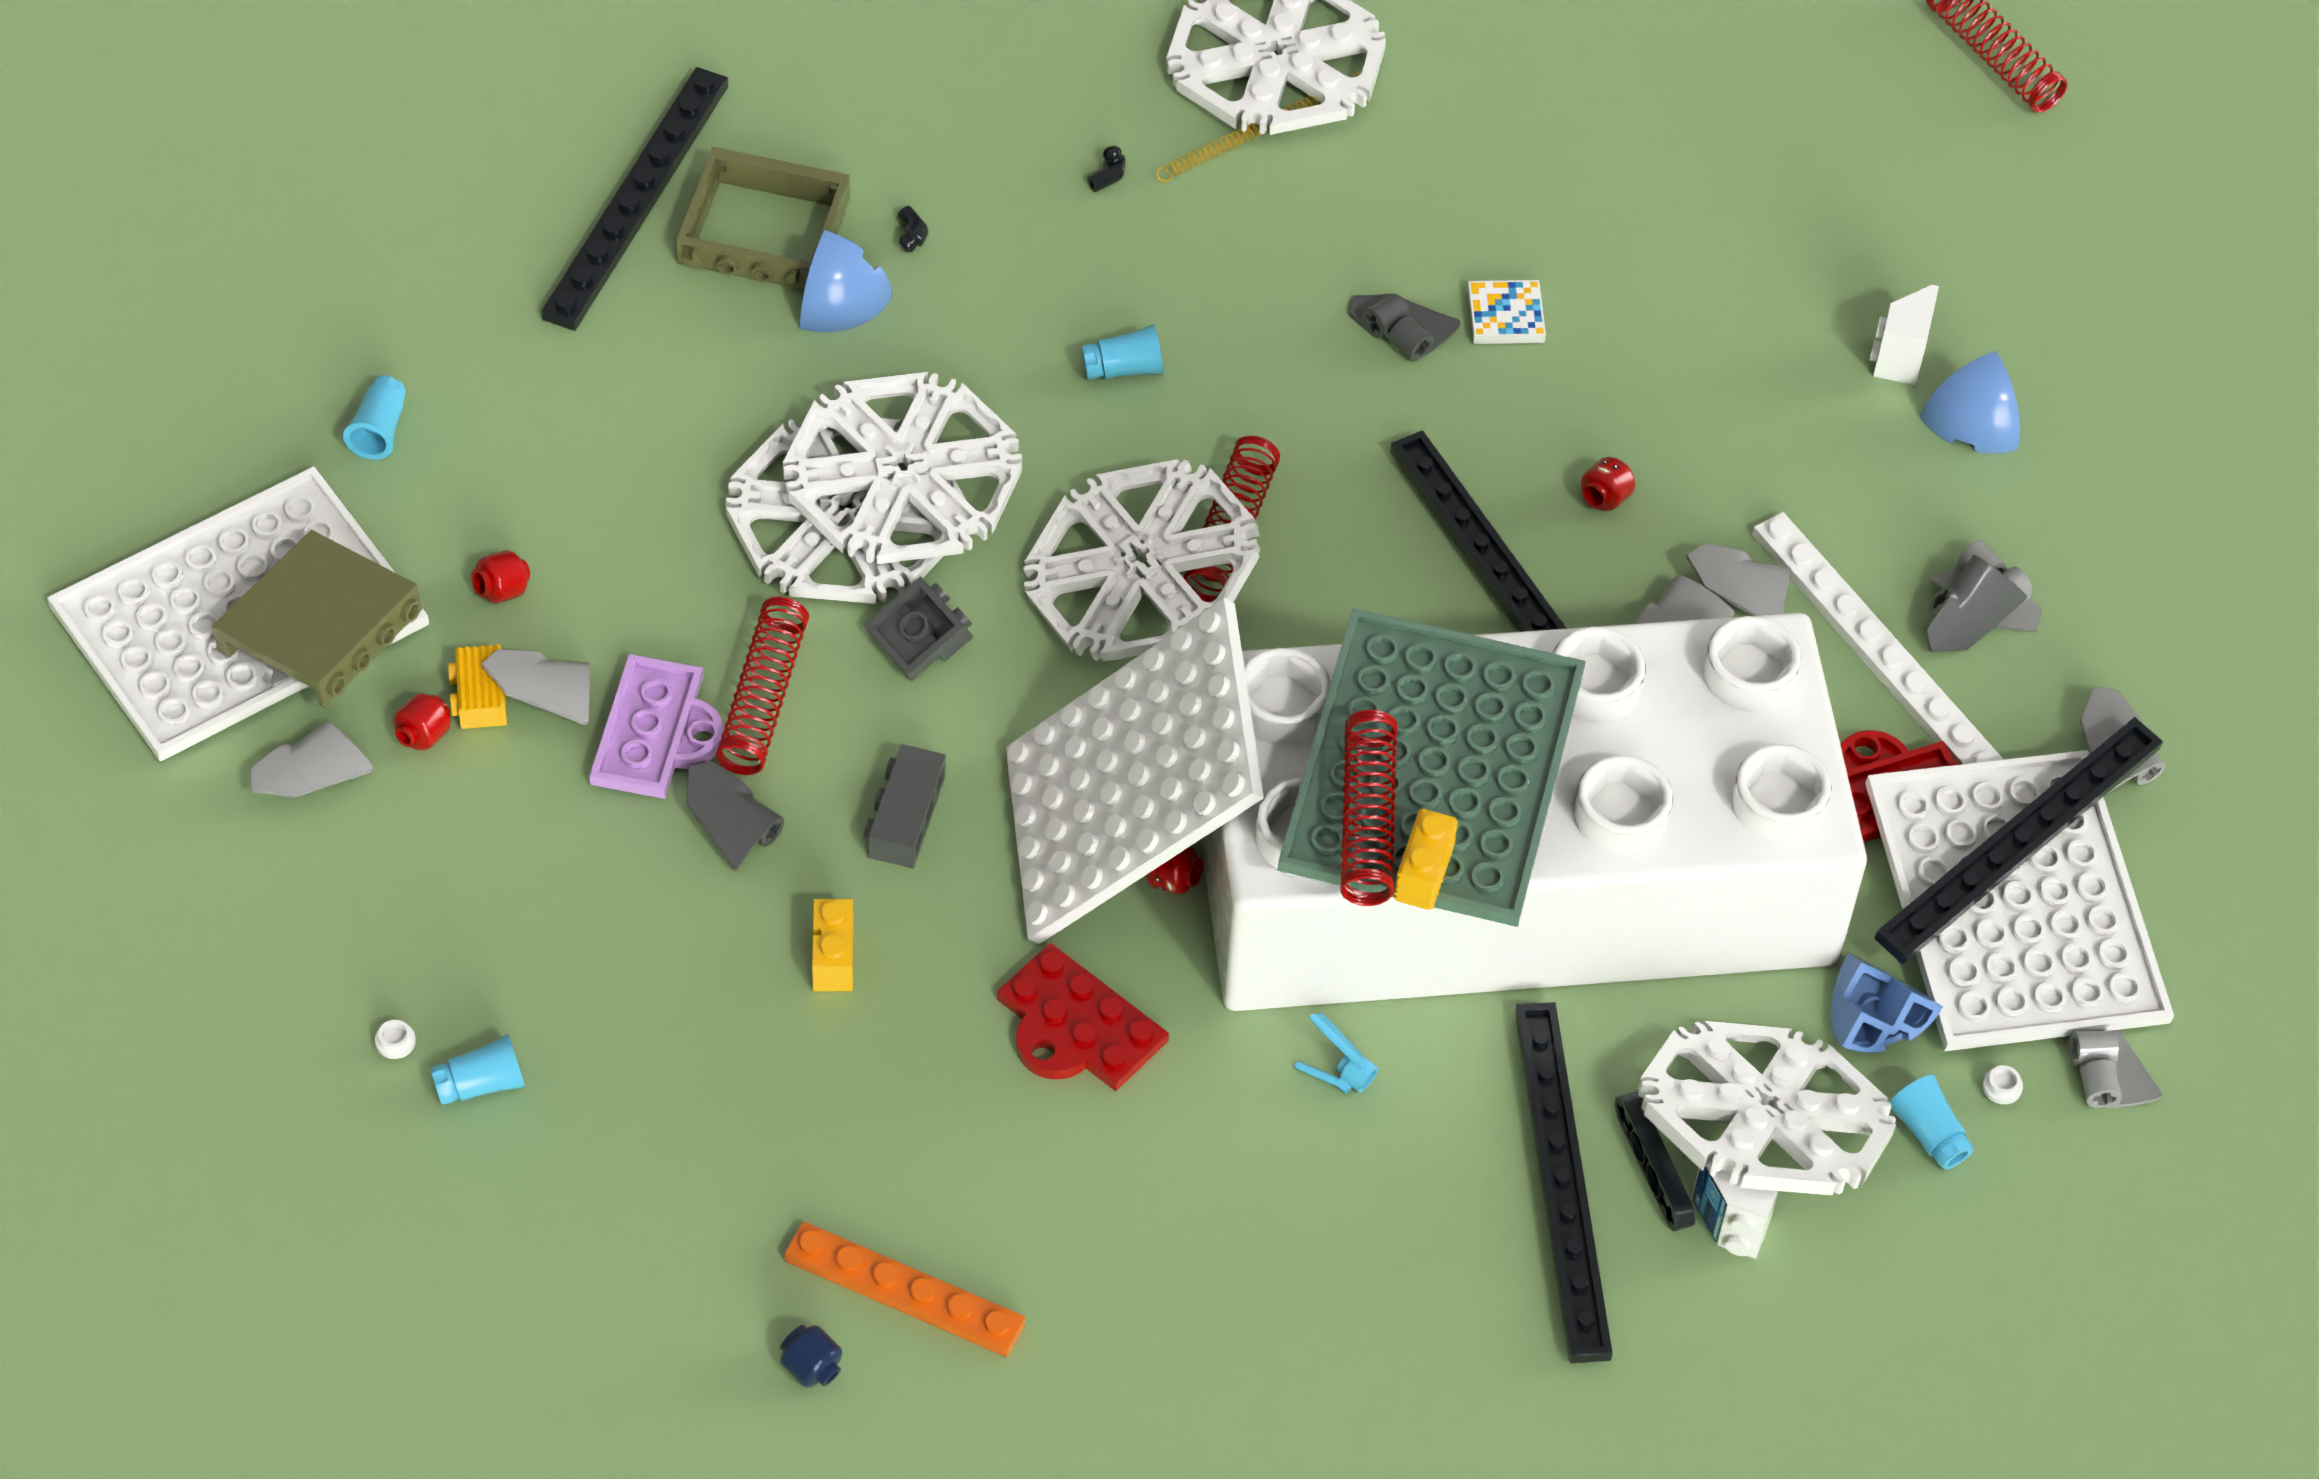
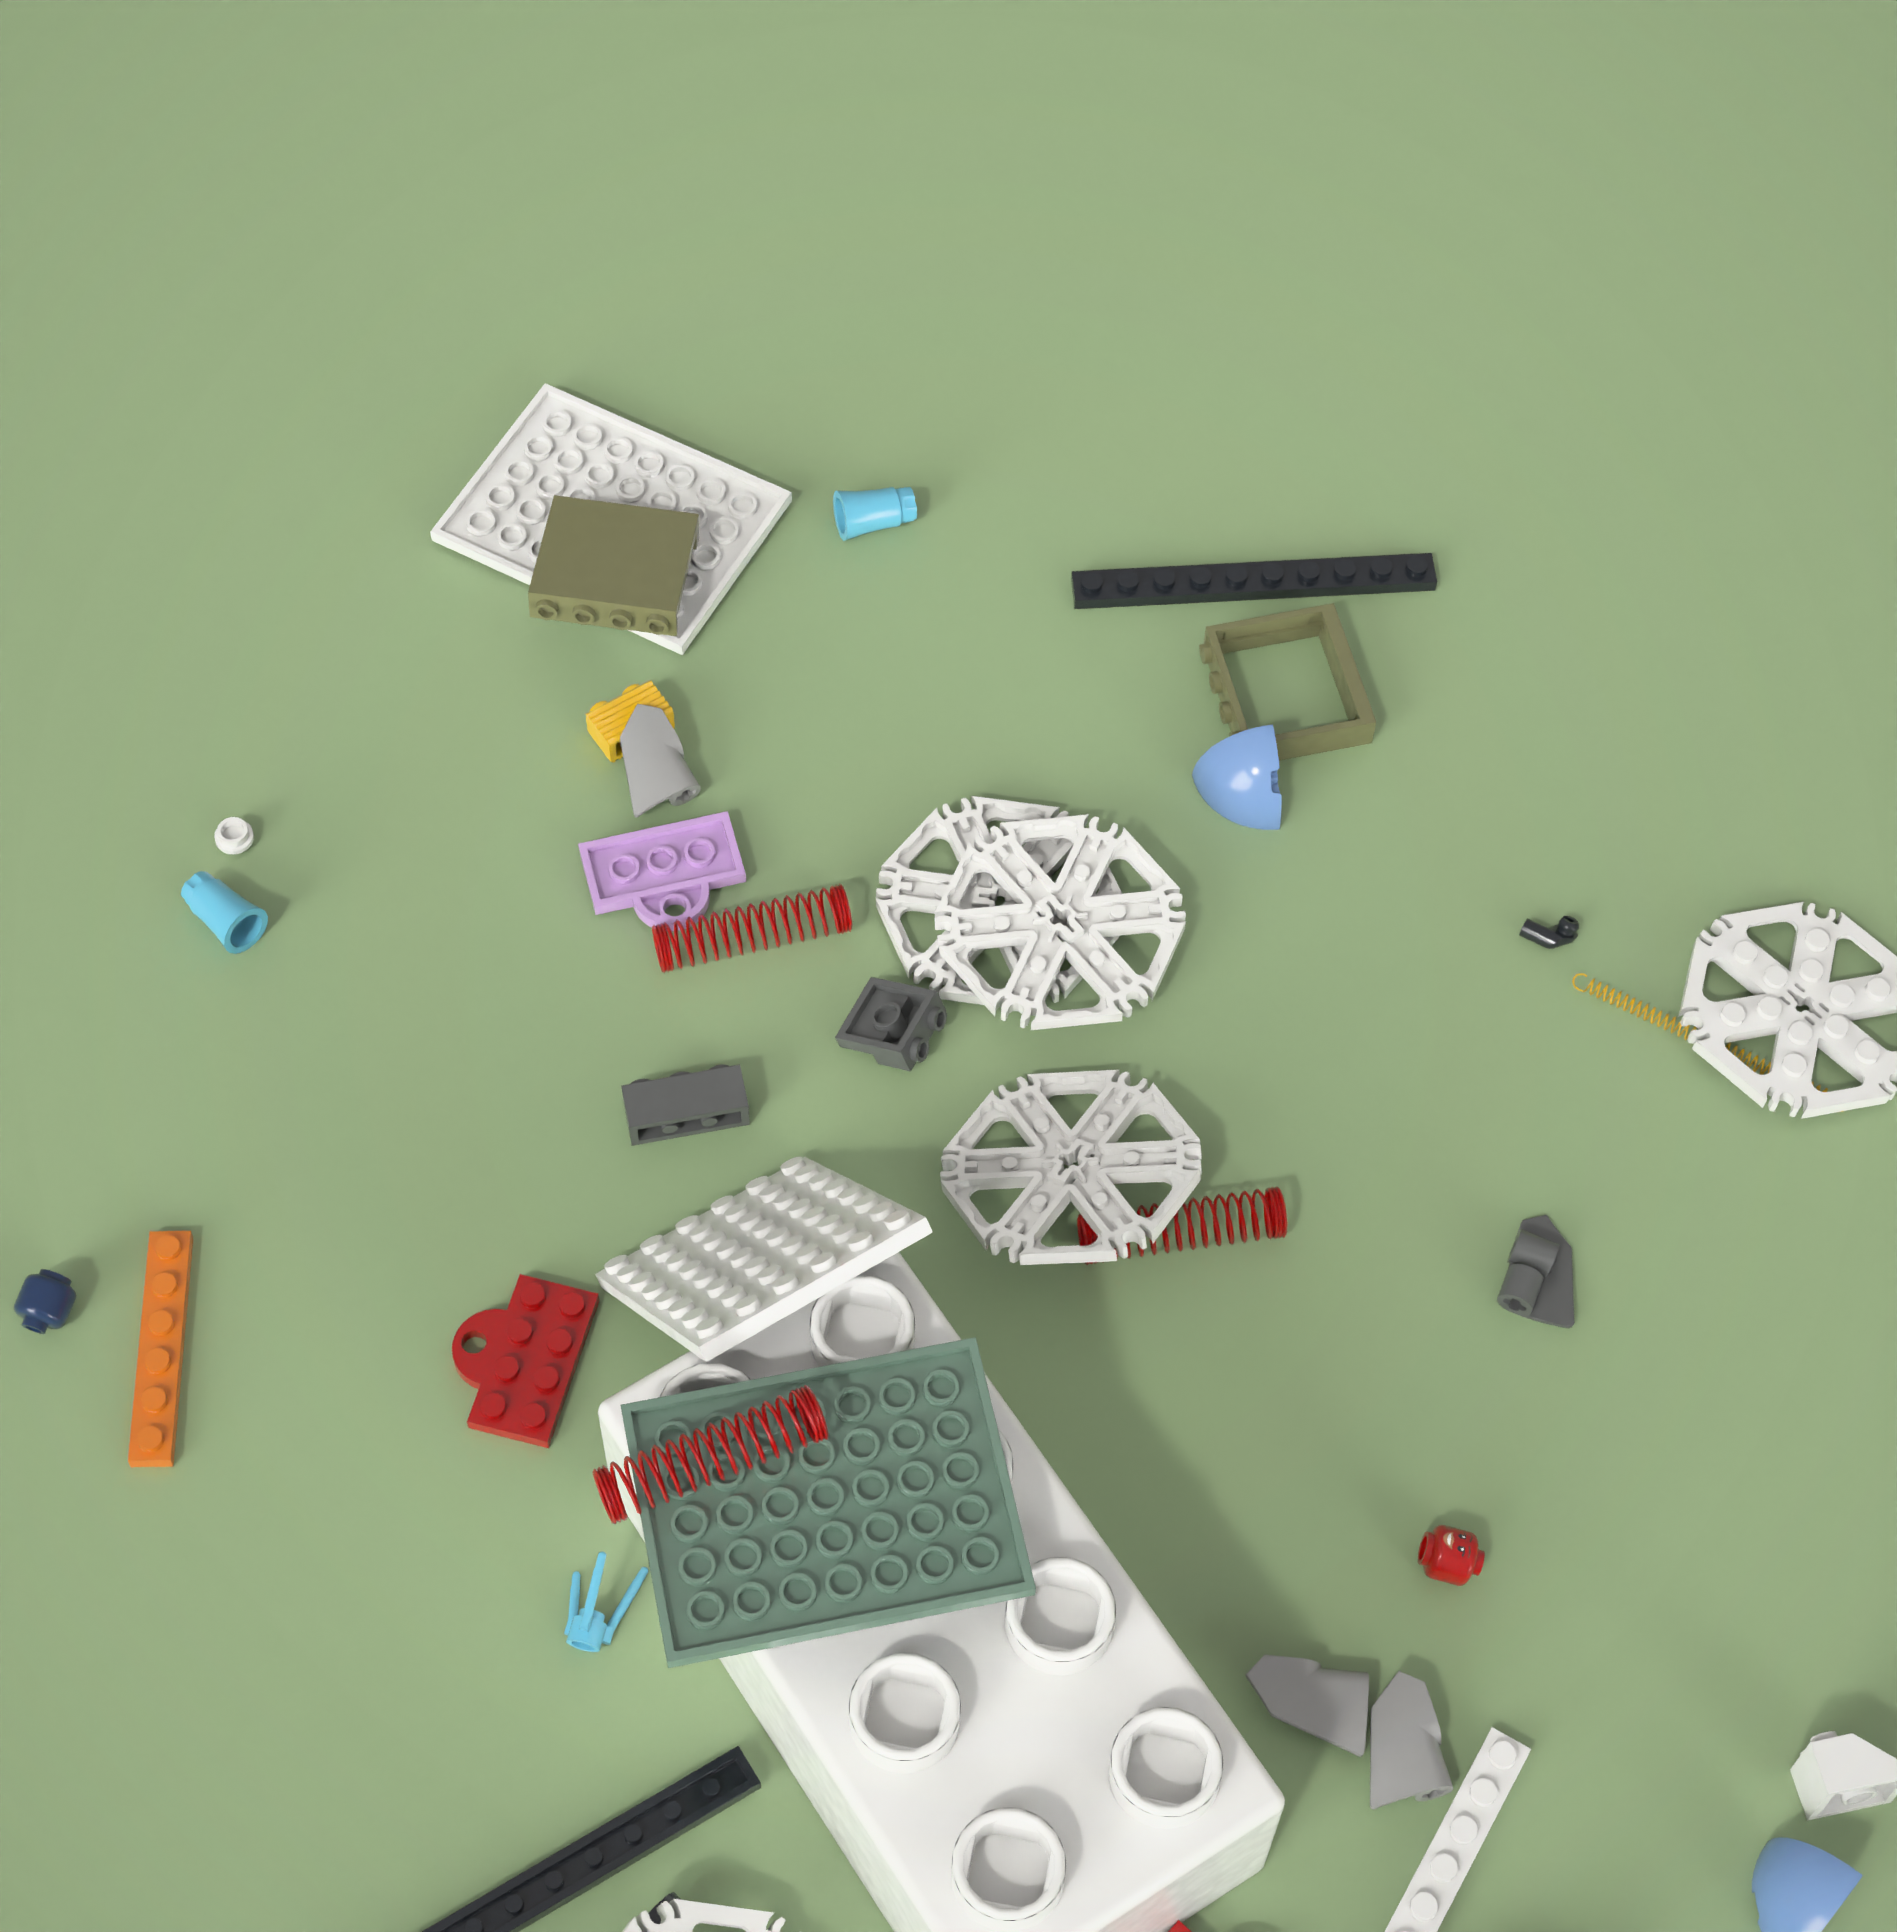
camera: 65 degrees right, 5 degrees up
(309, 765) = (475, 638): light grey panel -> none
(421, 721) = (566, 695): red head -> none
(500, 576) = (756, 679): red head -> none
(730, 812) = (598, 968): dark grey panel -> none
(833, 944) = (495, 1118): yellow piece -> none
(915, 229) = (1362, 810): black arm -> none
(1124, 355) = (1324, 1046): medium azure plant -> none
(1425, 859) = (674, 1535): yellow brick -> none
(1474, 534) = (1282, 1493): black plate -> none
(1506, 312) = (1620, 1364): tile -> none

